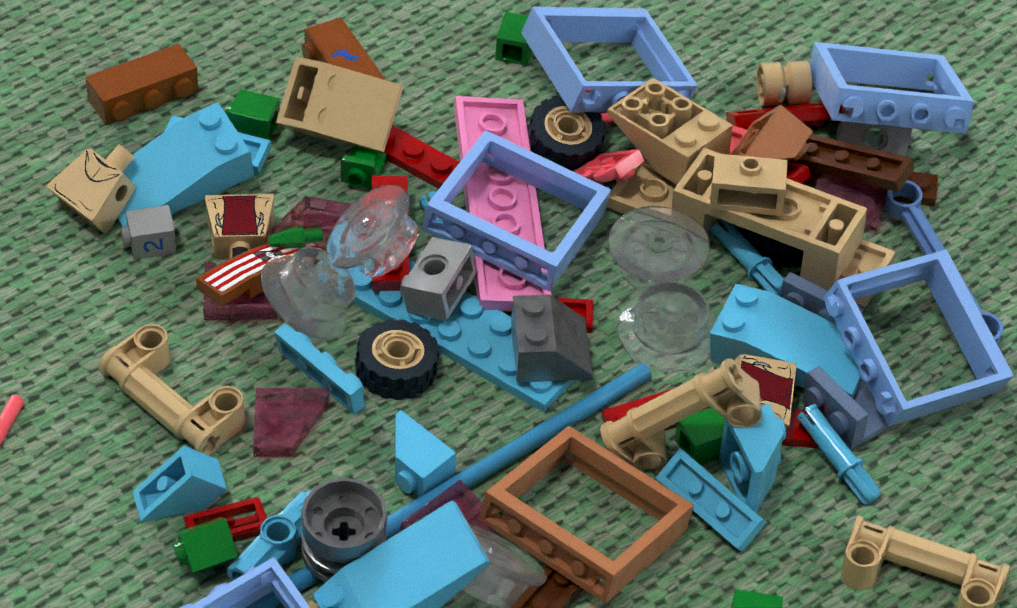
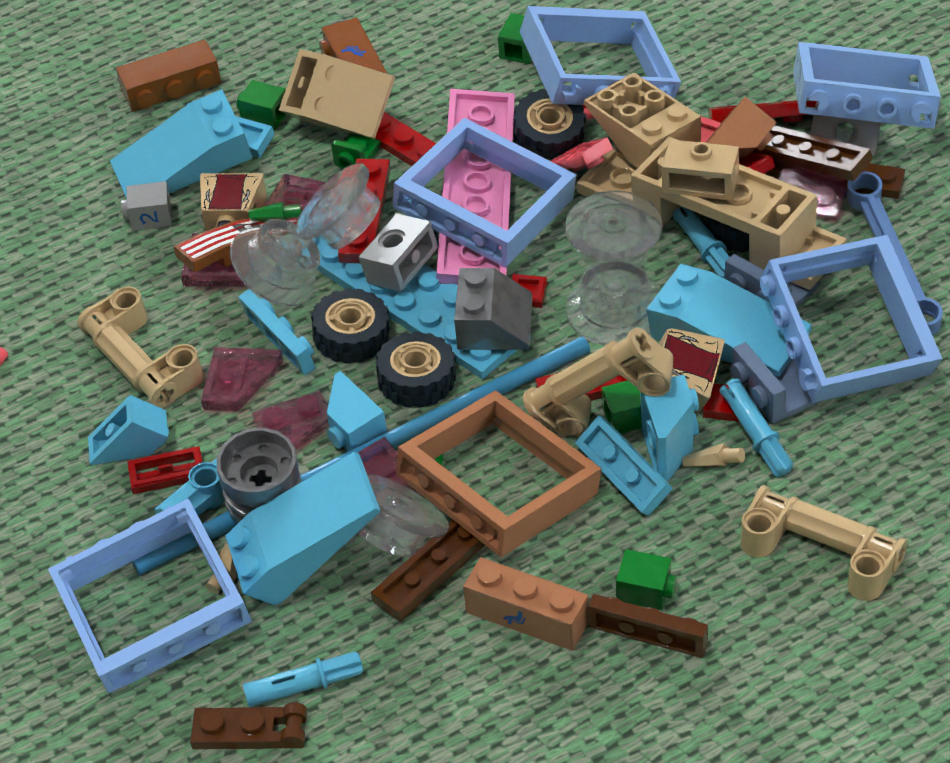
camera: 15 degrees right, 0 degrees up
(96, 186) = (106, 164): tan torso -> none
(205, 545) = (137, 486): green brick -> none
(359, 459) = (295, 418): none -> clear pink wing
(475, 404) = (415, 369): none -> black wheel
(784, 83) = (767, 81): tan wheel -> none
(800, 486) = (714, 457): none -> tan bar

